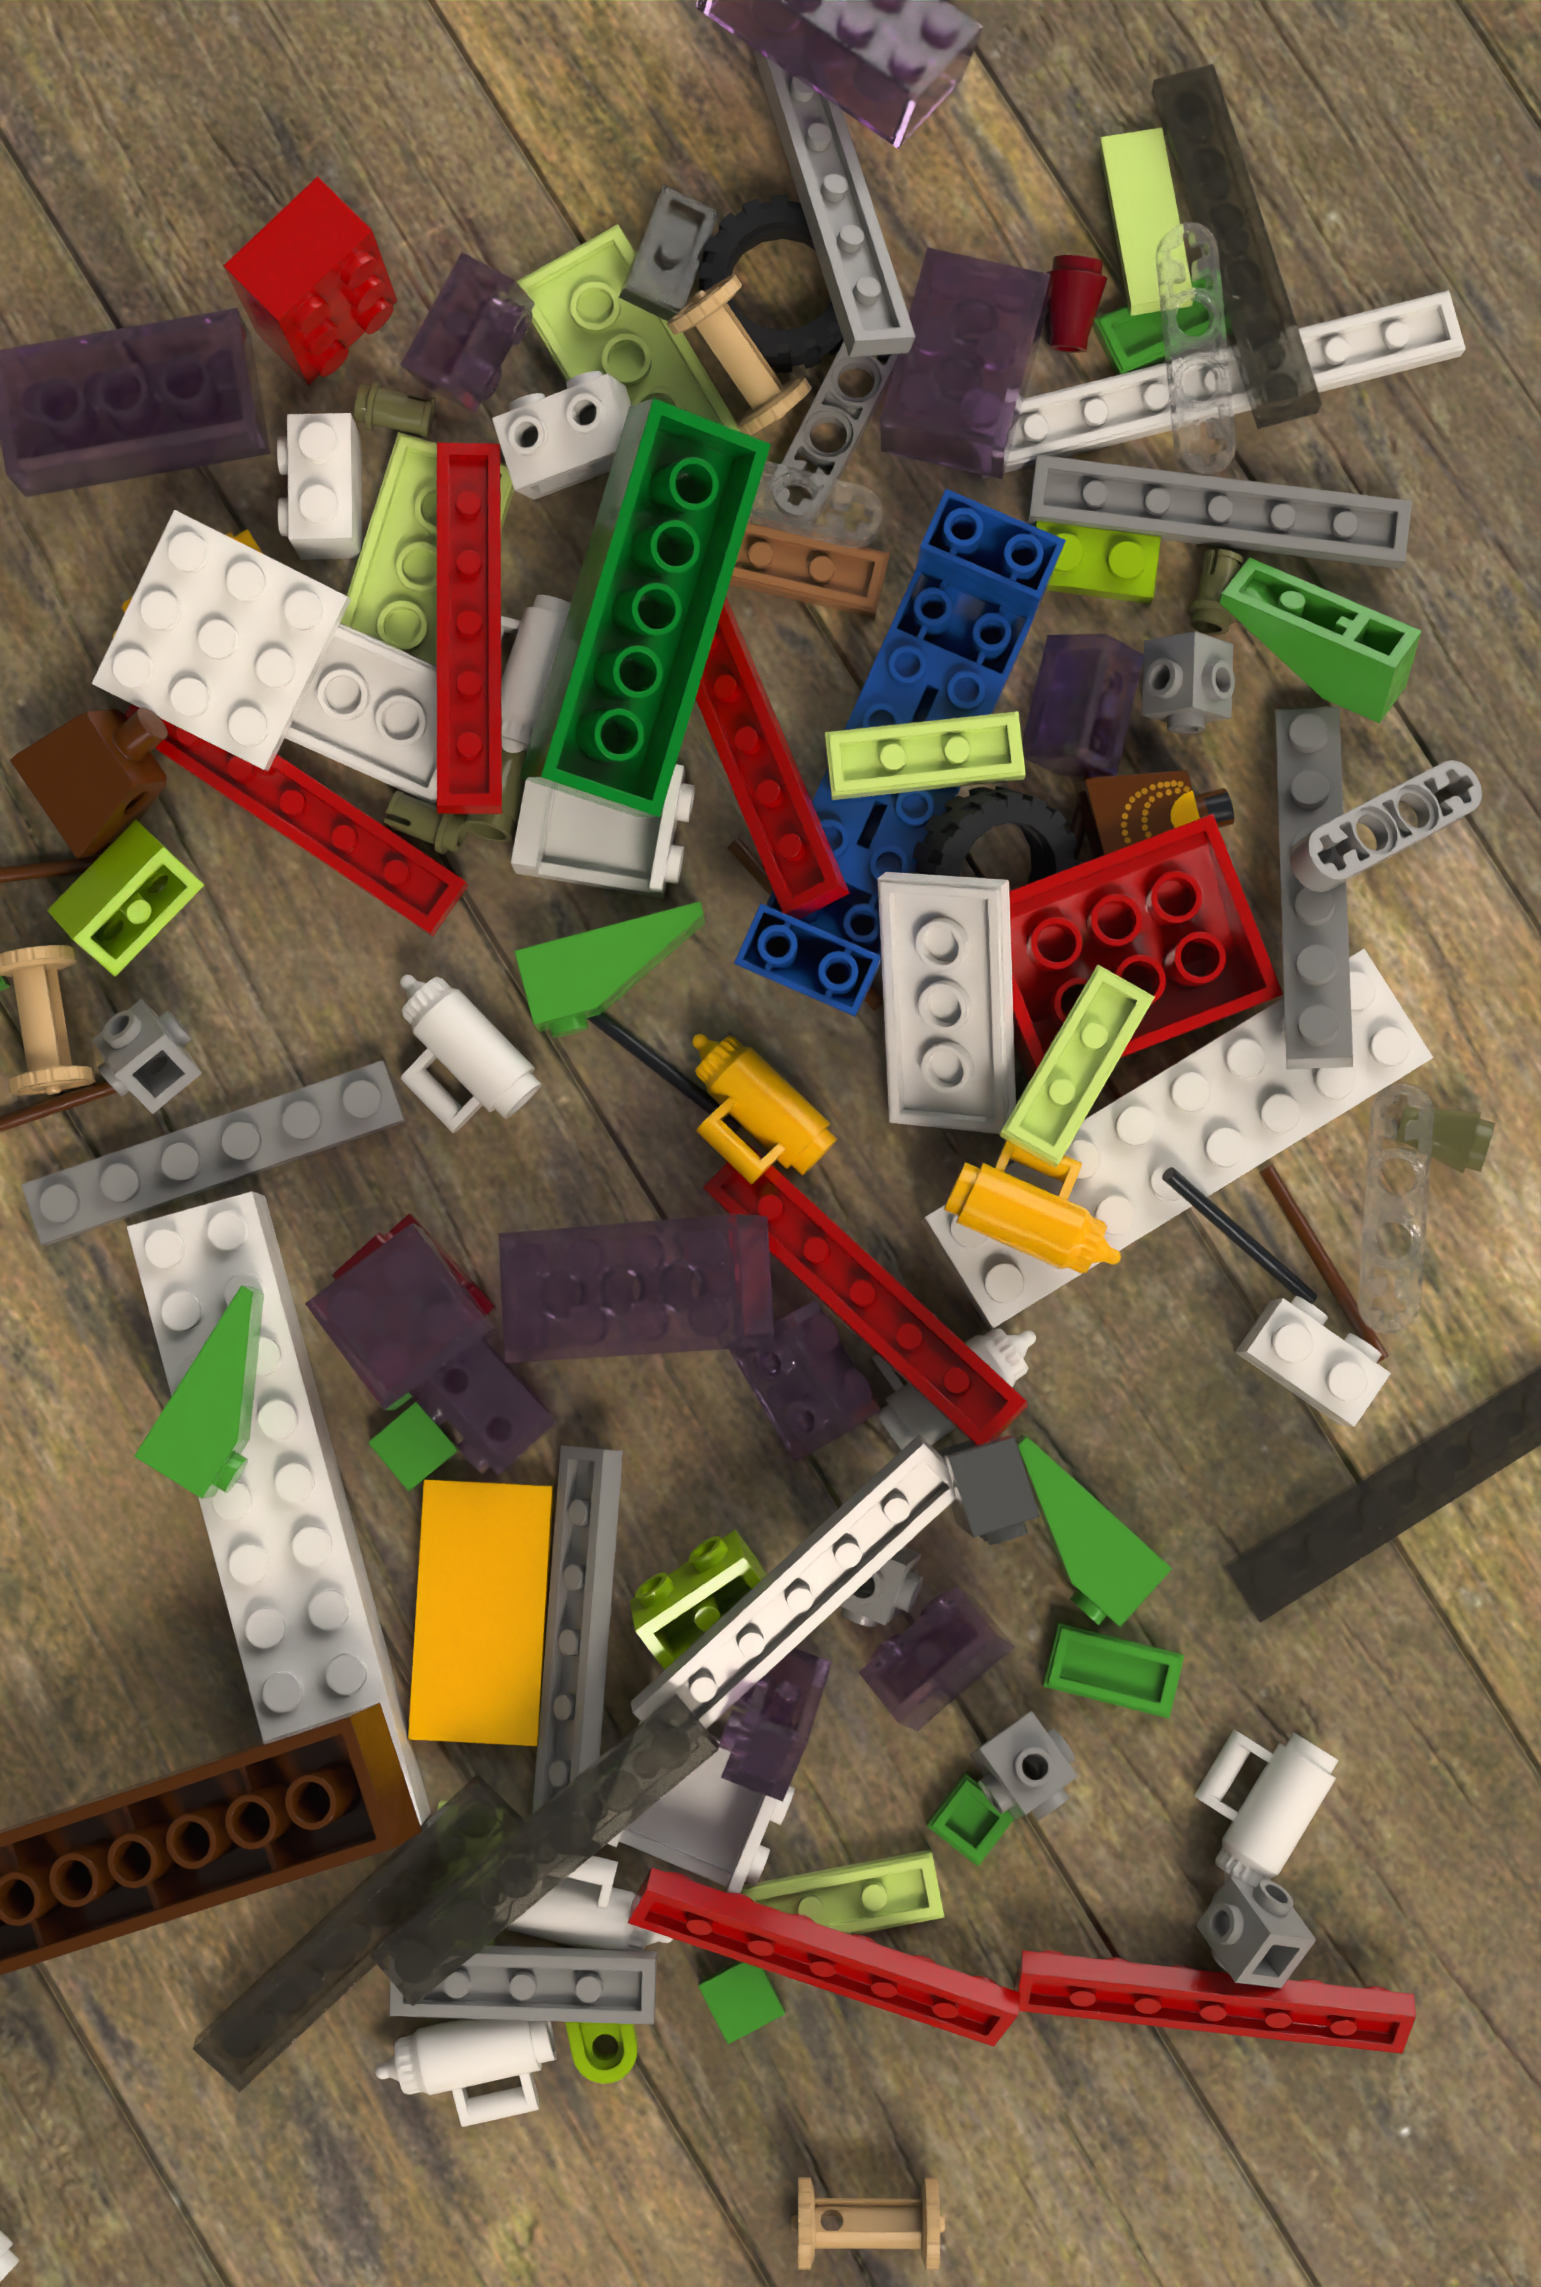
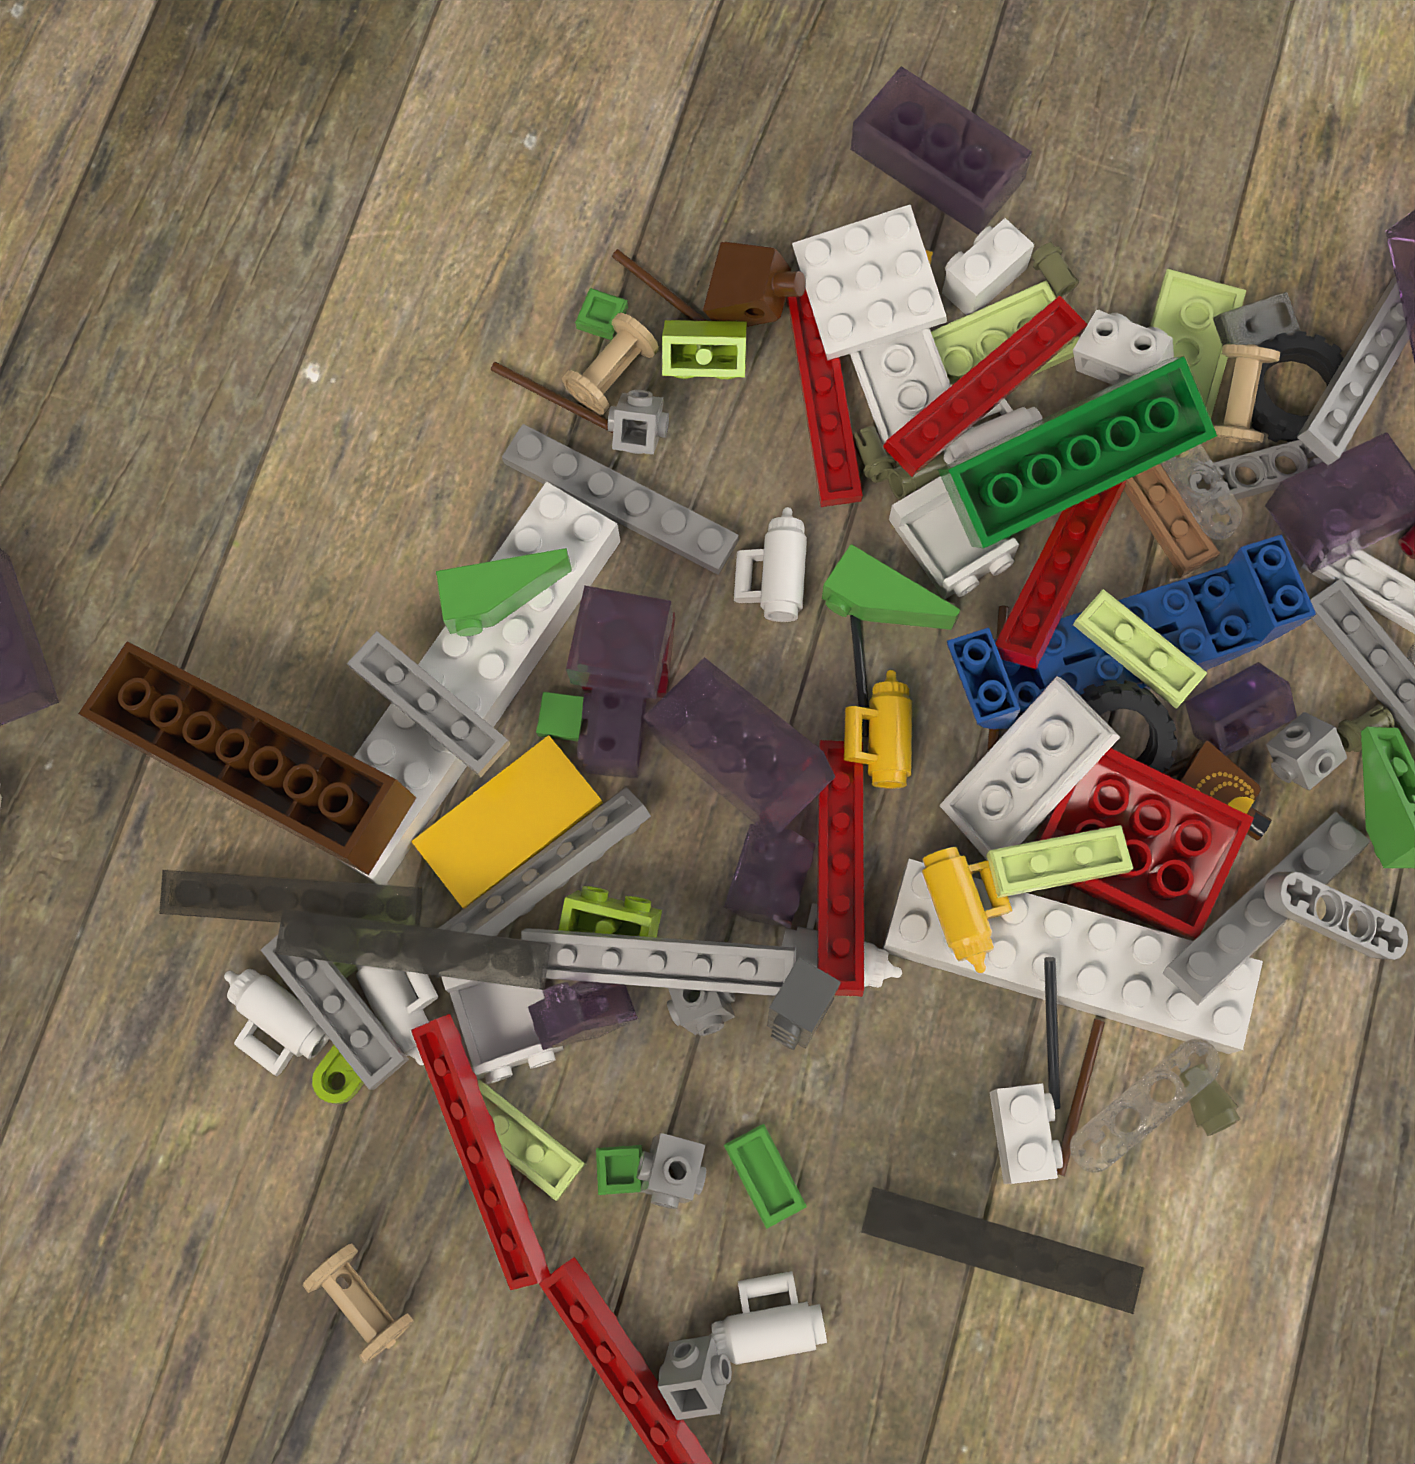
camera: 50 degrees right, 10 degrees down
(278, 1594) = (429, 704): none -> light grey plate
(313, 282) = (1079, 171): red brick -> none
(469, 333) = (1125, 265): brick -> none
(741, 1999) = (421, 1131): bright green tile -> none
(935, 1658) = (687, 1071): brick -> none
(1093, 1547) = (820, 1108): bright green slope -> none
(1104, 563) = (1318, 659): lime plate -> none

